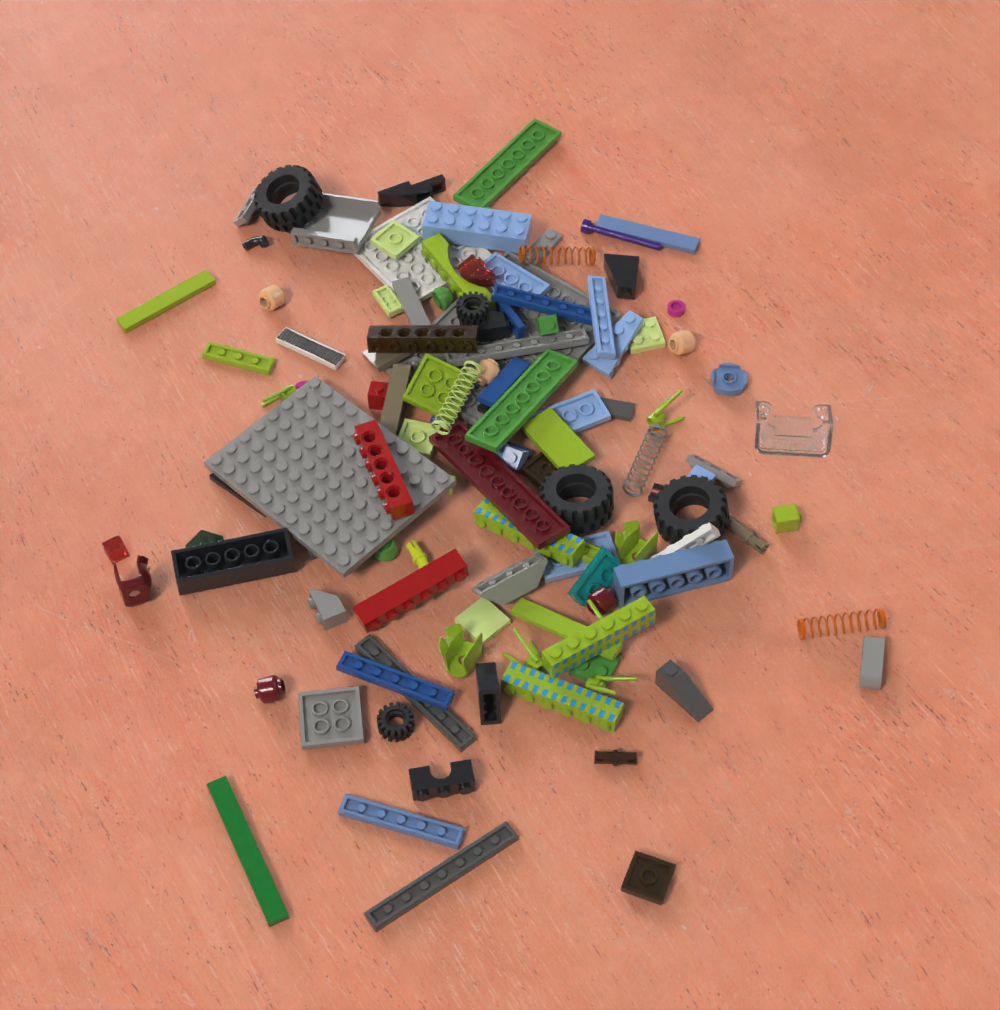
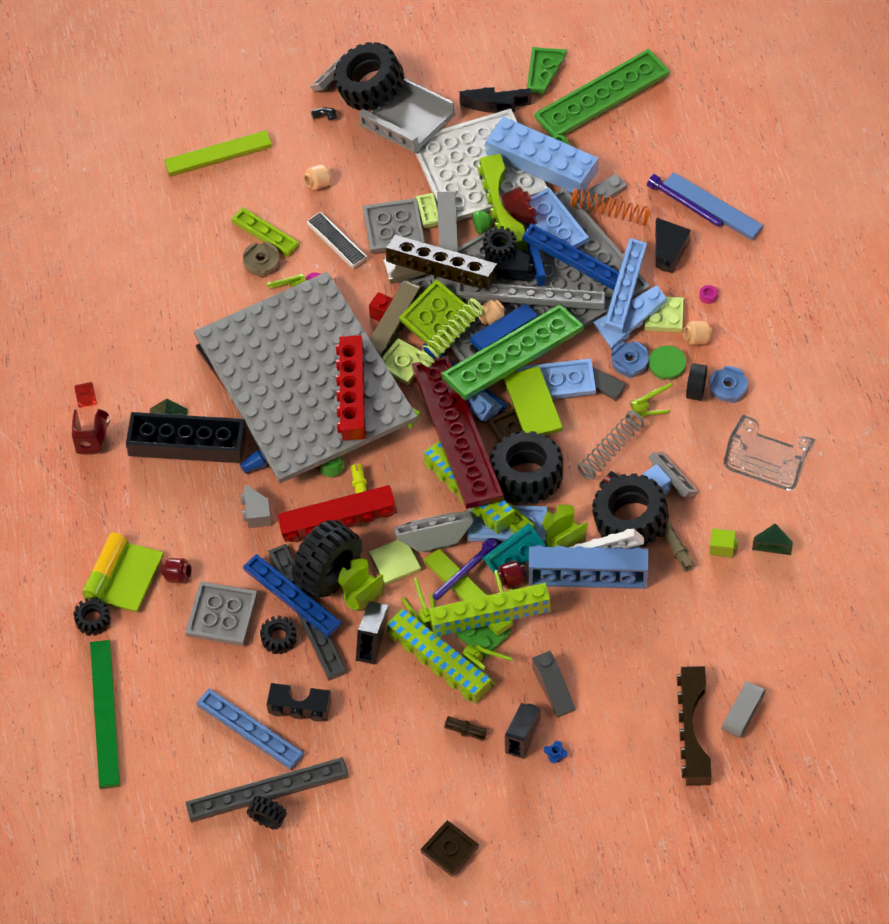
camera: 20 degrees right, 5 degrees up
(203, 767) = (92, 606): none -> black tyre
(215, 708) = (122, 573): none -> lime door
(248, 390) = (264, 267): none -> dark tan plate
(309, 566) = (254, 462): none -> blue cone
(353, 320) = (392, 219): none -> light grey plate
(395, 240) = (456, 148): yellowish green plate -> none
(418, 633) = (323, 556): none -> black tyre
(445, 155) = (543, 67): none -> bright green wing
(453, 897) = (266, 812): none -> black tyre
(547, 324) = (568, 279): bright green brick -> none
(567, 582) = (487, 546): none -> dark purple piece
(629, 389) = (629, 368): none -> medium blue plate
(664, 375) = (667, 362): none -> bright green tile
(673, 743) = (521, 730): none -> black slope
(701, 383) = (696, 381): none -> black tyre
(709, 759) = (555, 757): none -> blue plate
(832, 504) = (773, 541): none -> clear green slope
(851, 725) = (697, 763): none -> dark brown arch
(881, 615) = (771, 662): orange piece -> none

